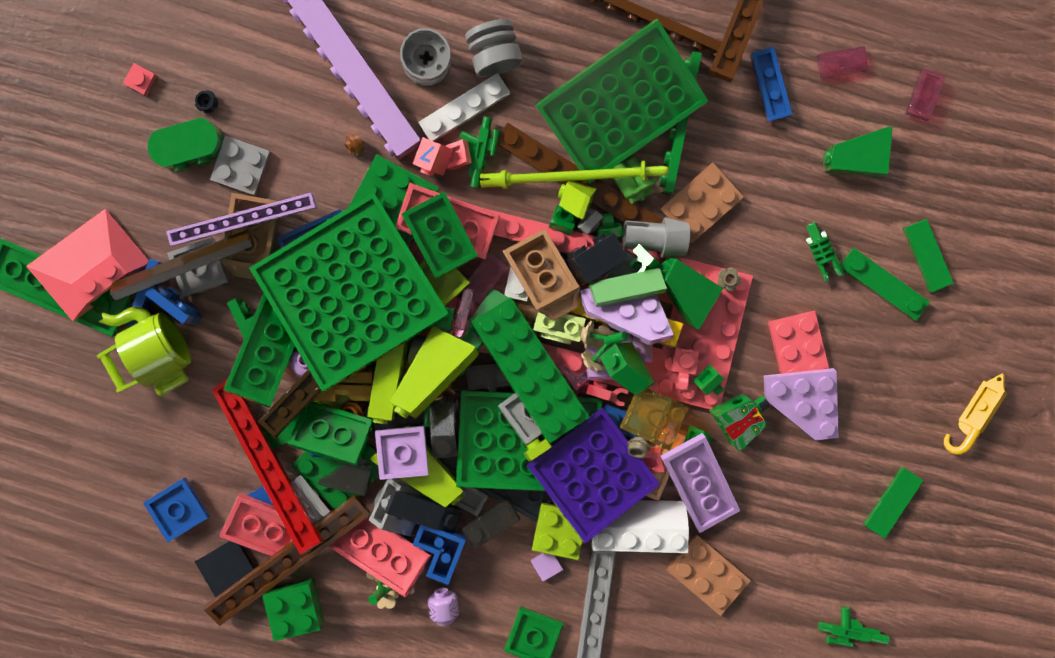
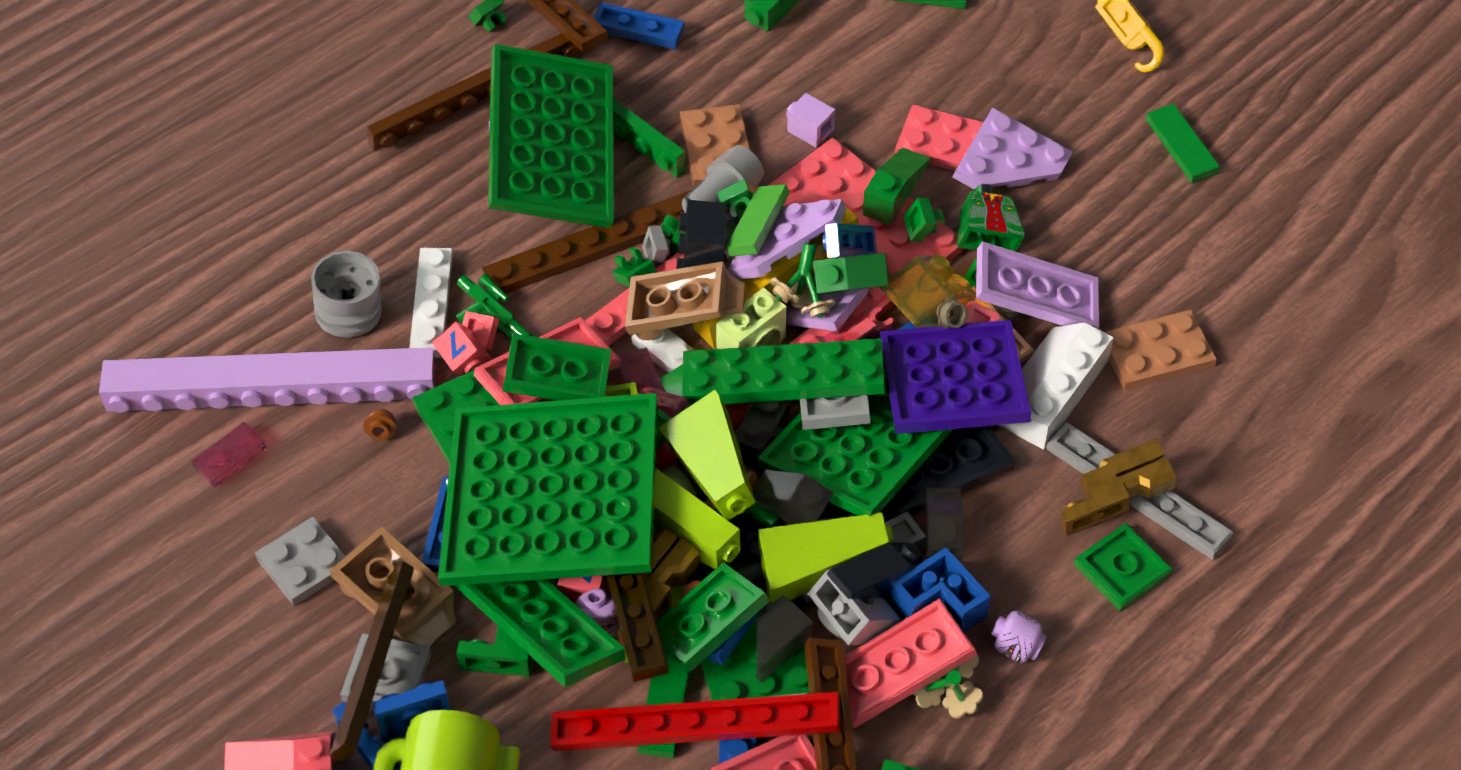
camera: 55 degrees left, 35 degrees down
(140, 79) = (108, 610): coral plate -> none
(185, 144) = (229, 599): green brick -> none
(200, 100) = (194, 545): black plate -> none
(242, 219) = (371, 570): lavender piece -> none
(281, 68) = (229, 454): none -> clear pink plate
(402, 452) = (787, 541): lavender plate -> none
(494, 48) = (392, 226): light grey wheel -> none
(505, 179) = (544, 299): lime bar -> none
(536, 448) = (882, 410): lime plate -> none
(546, 565) = (1038, 503): lavender tile -> none
(555, 534) = (1002, 458): lime plate -> none
(576, 198) = (621, 230): lime slope -> none
(584, 609) = (1115, 482): none -> pearl gold plate
(633, 187) = (642, 187): bright green piece -> none
(649, 355) = (849, 240): none -> blue plate
(684, 363) = (893, 238): coral plate -> none
(689, 291) = (808, 178): green slope -> none
(724, 283) = (819, 152): dark tan plate -> none
(733, 345) = (893, 185): none -> green slope
(758, 252) = (810, 120): none -> lavender brick
(822, 251) = (851, 67): green hinge -> none
(851, 629) = (1311, 251): green piece -> none
(884, 284) = (927, 38): green plate -> none

